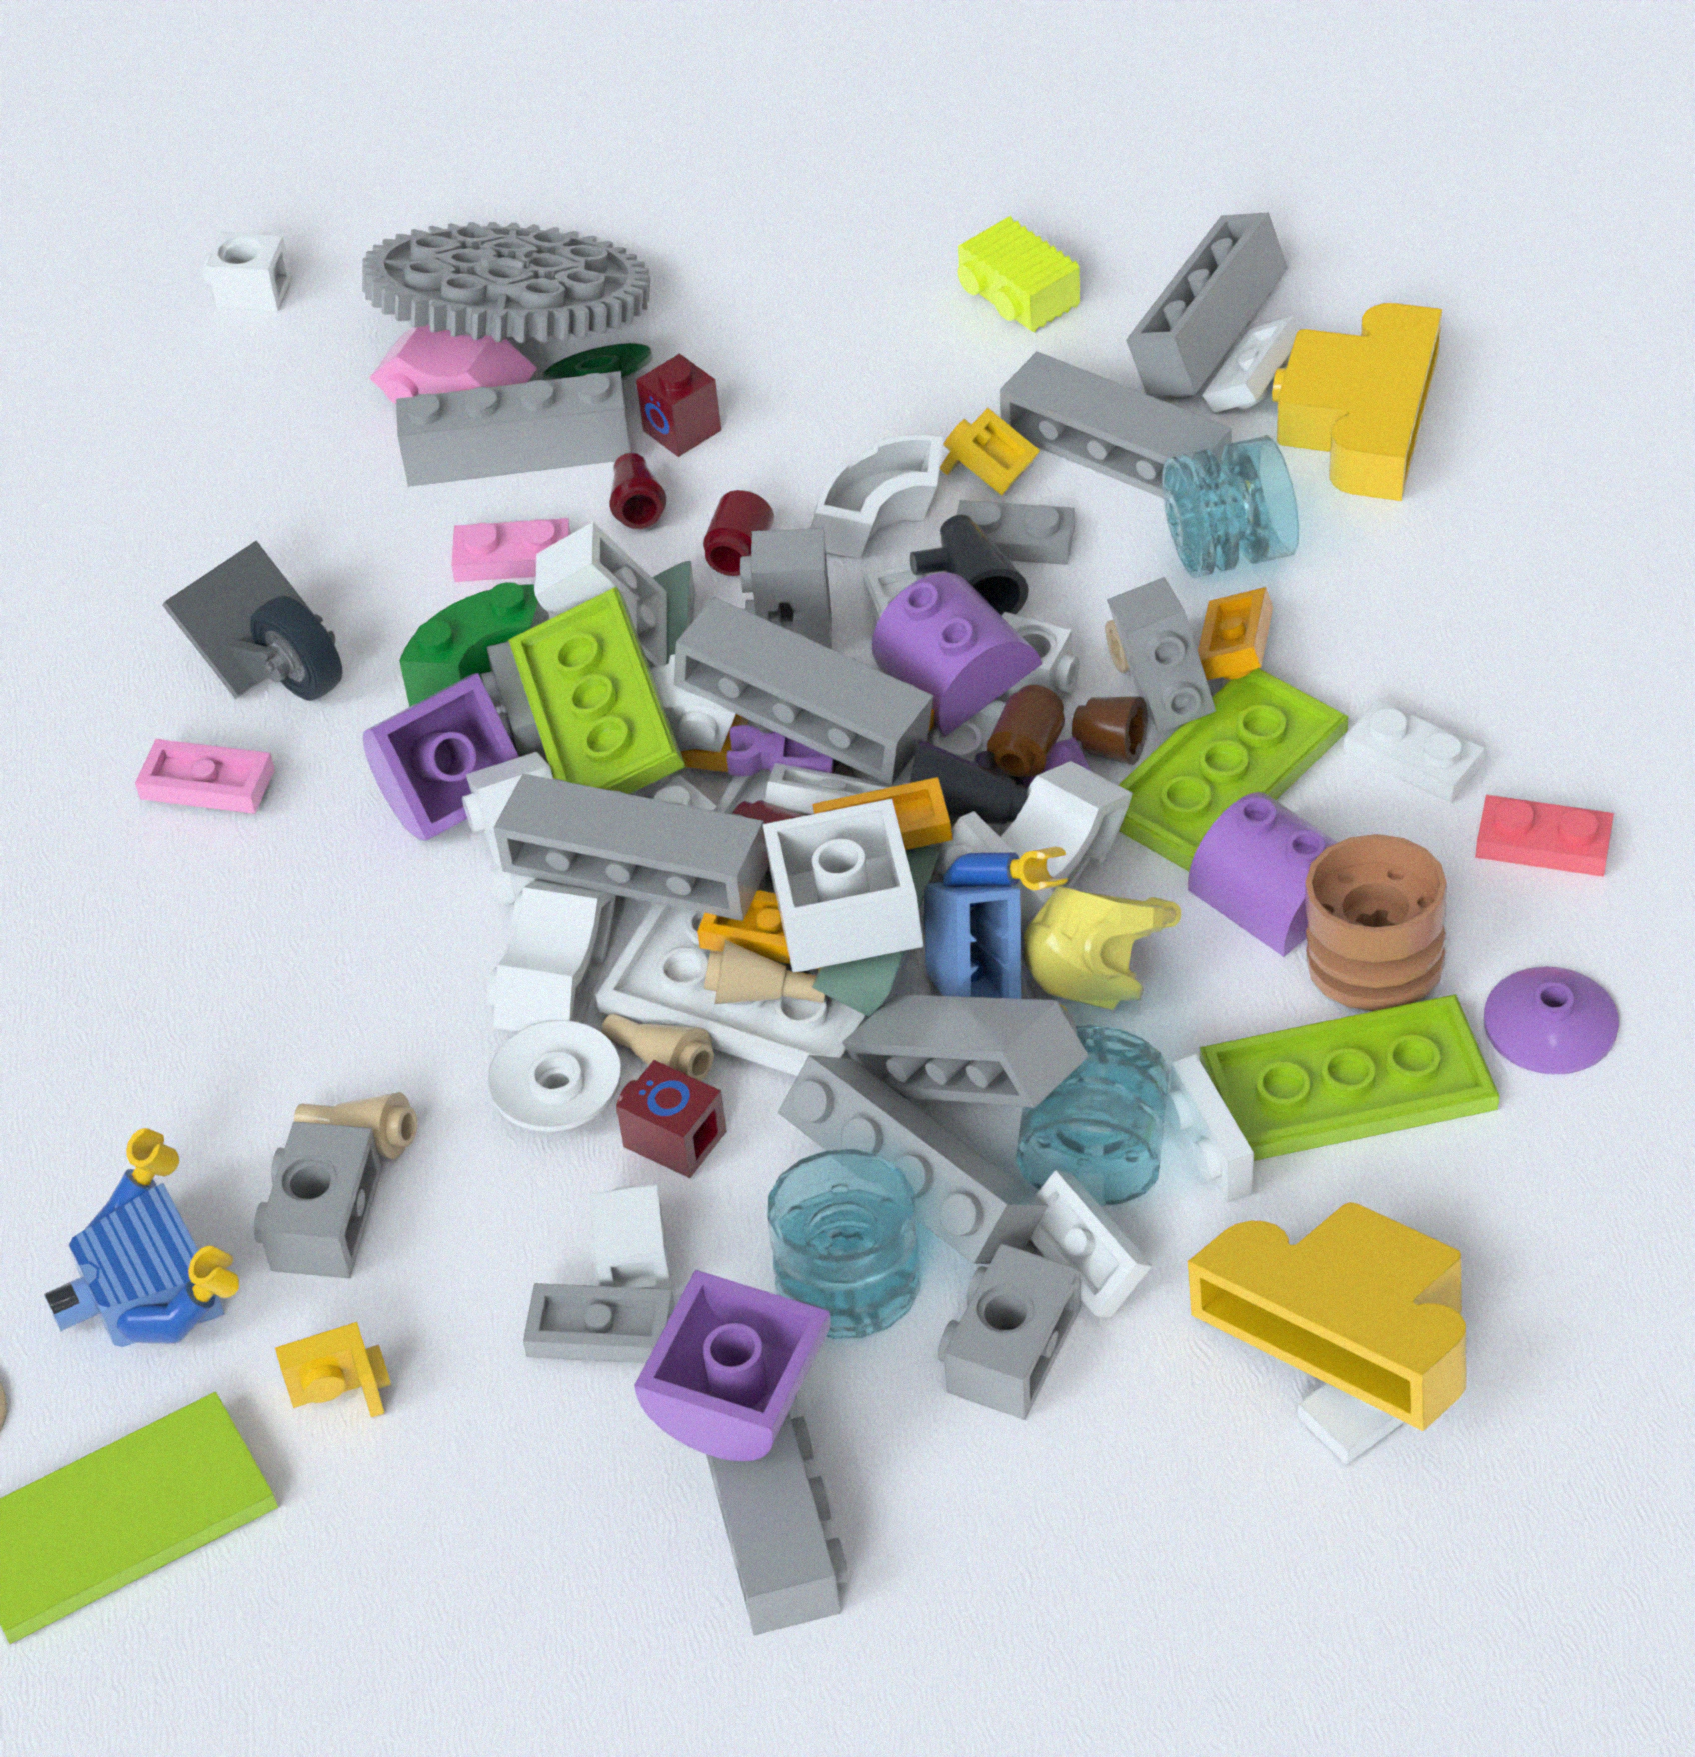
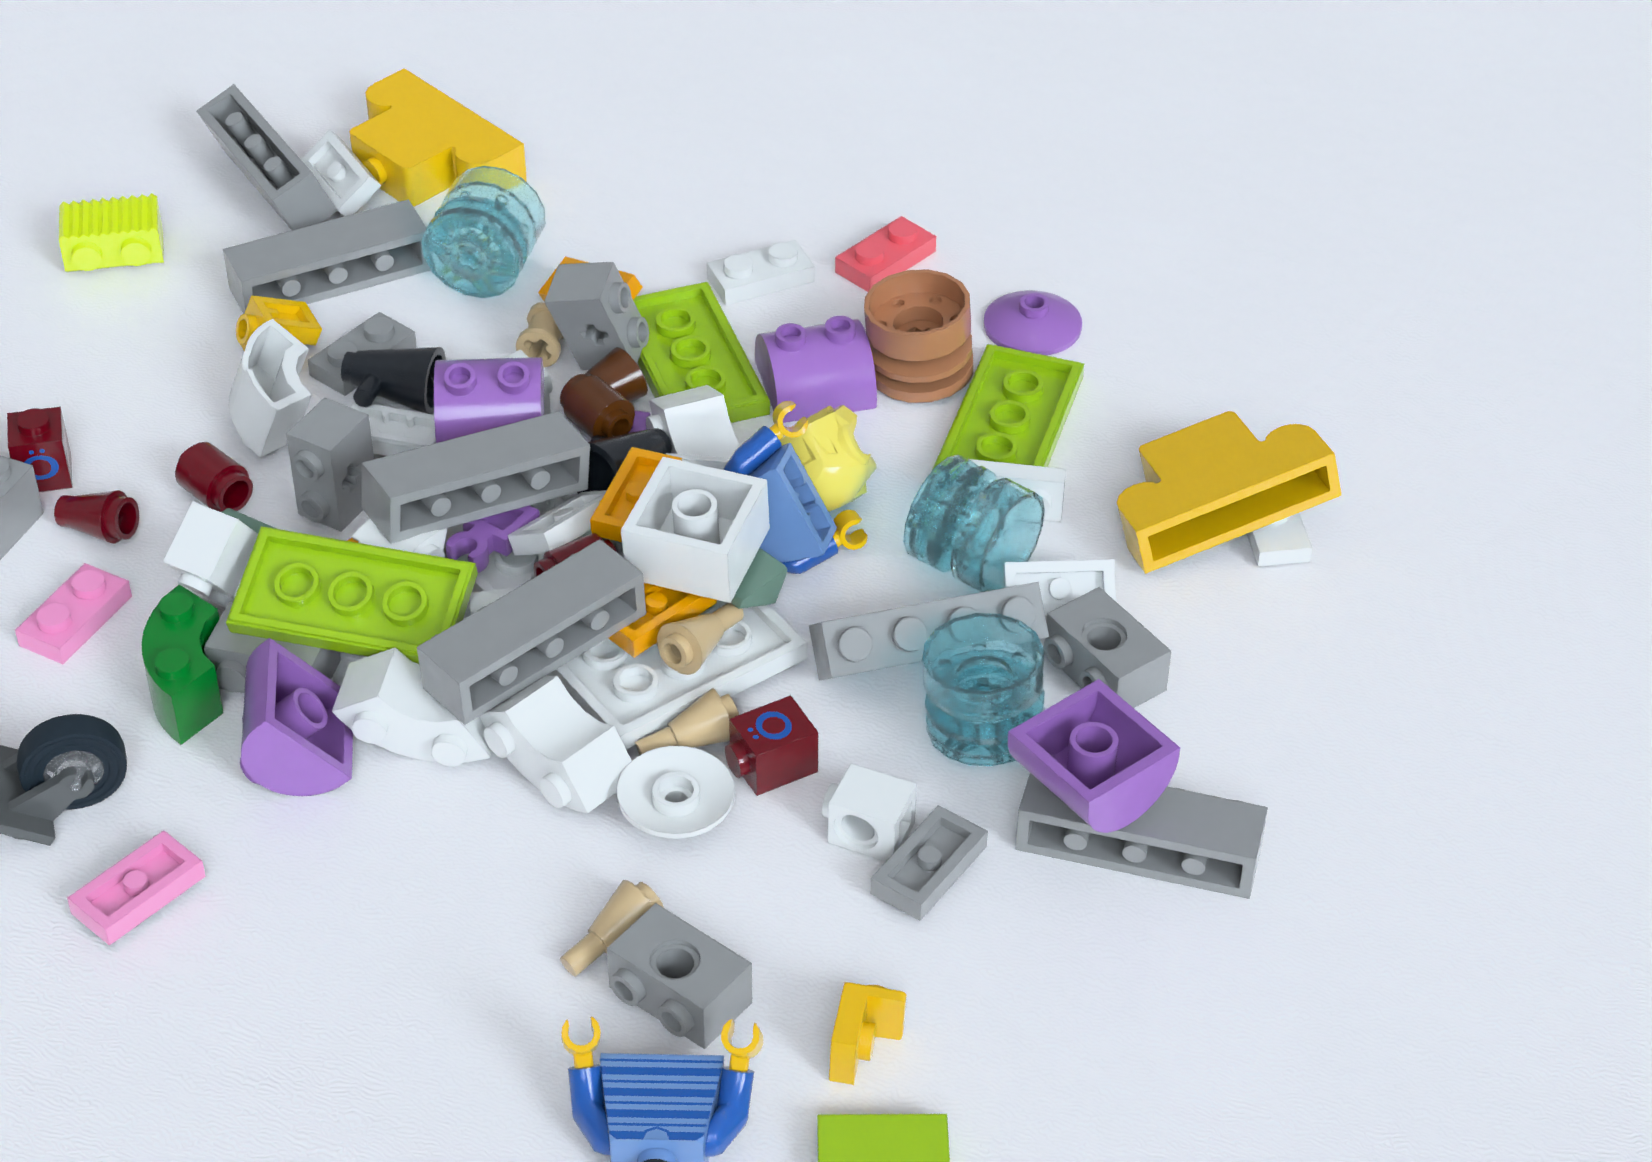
camera: 65 degrees left, 5 degrees down
(969, 1048) = (887, 541): light grey brick -> none

